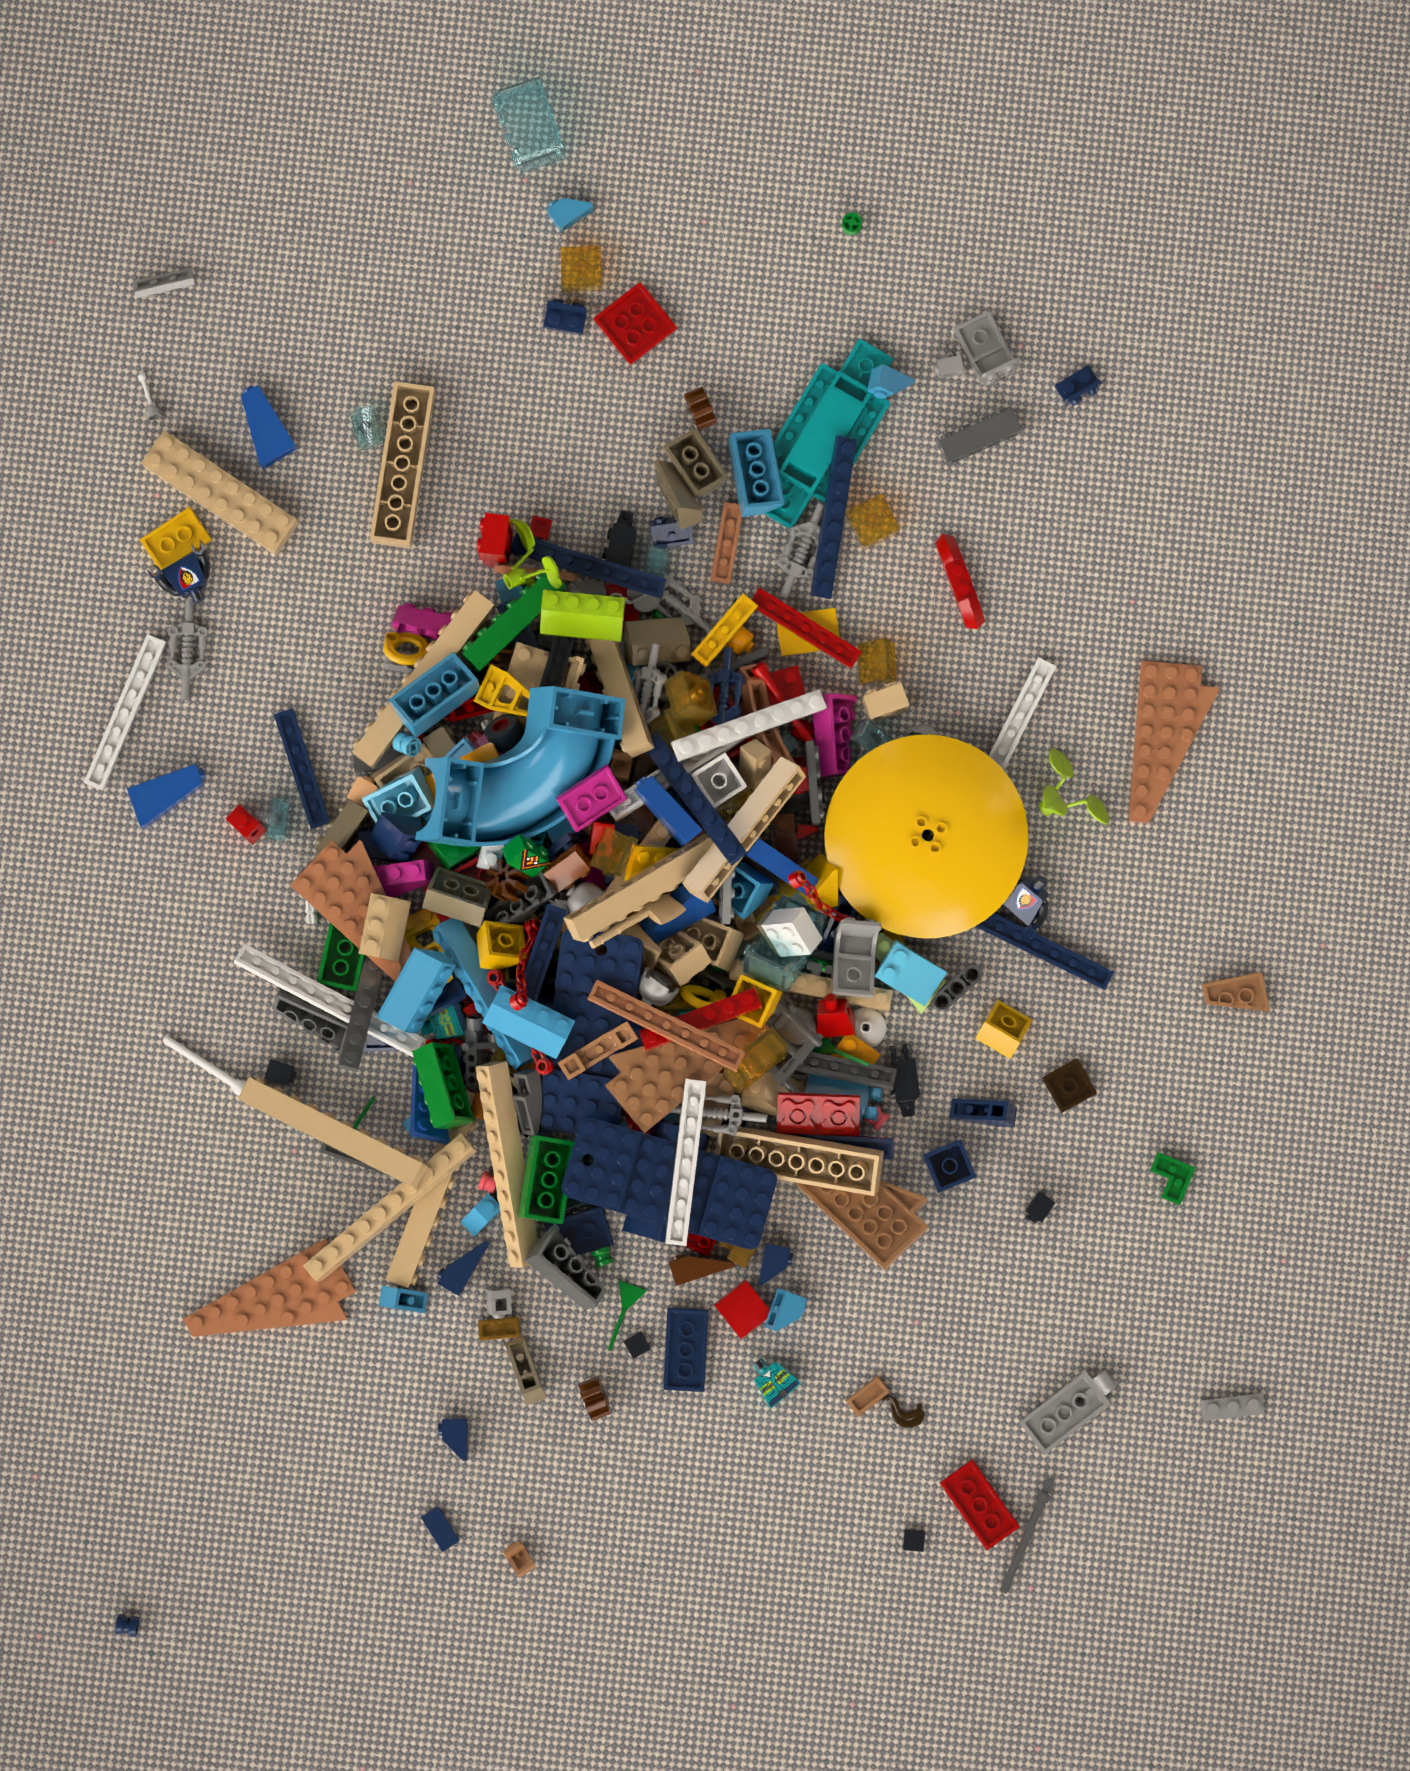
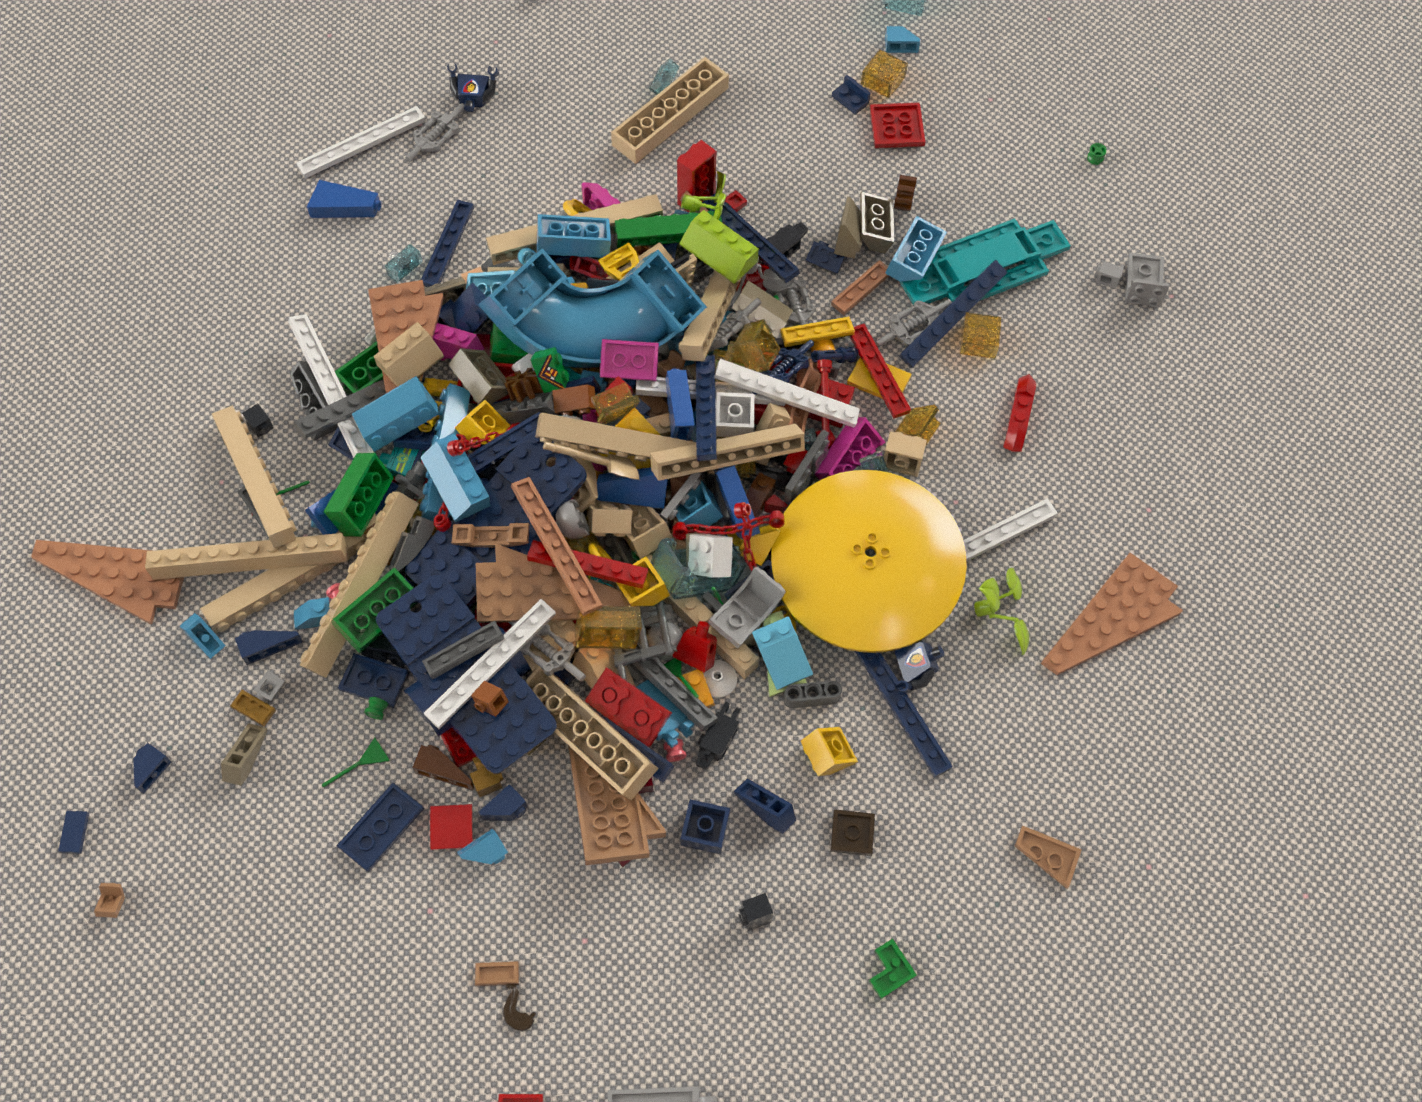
camera: 30 degrees right, 20 degrees down
(174, 538) = (479, 66): yellow tile -> none
(220, 493) = (536, 59): tan brick -> none
(237, 1085) = (212, 380): white piece -> none
(245, 824) = (377, 244): red torso -> none
(267, 431) = (597, 43): blue slope -> none
(565, 1269) = (337, 691): dark grey wedge -> none
(595, 1398) = (276, 811): reddish brown gear -> none
(637, 1345) = (346, 796): black tile -> none
(656, 561) = (805, 265): clear light blue brick -> none
(656, 1168) = (463, 650): none -> dark grey tile
(709, 1194) = (489, 698): none -> dark orange brick
(747, 658) = (839, 355): none -> dark blue pin
(749, 923) = (680, 529): none -> red piece
(774, 1382) = (428, 904): torso -> none
(887, 381) = (1057, 254): dark azure slope -> none
(979, 436) = (1102, 330): dark grey brick -> none
(1077, 386) = (1200, 343): dark blue bracket -> none

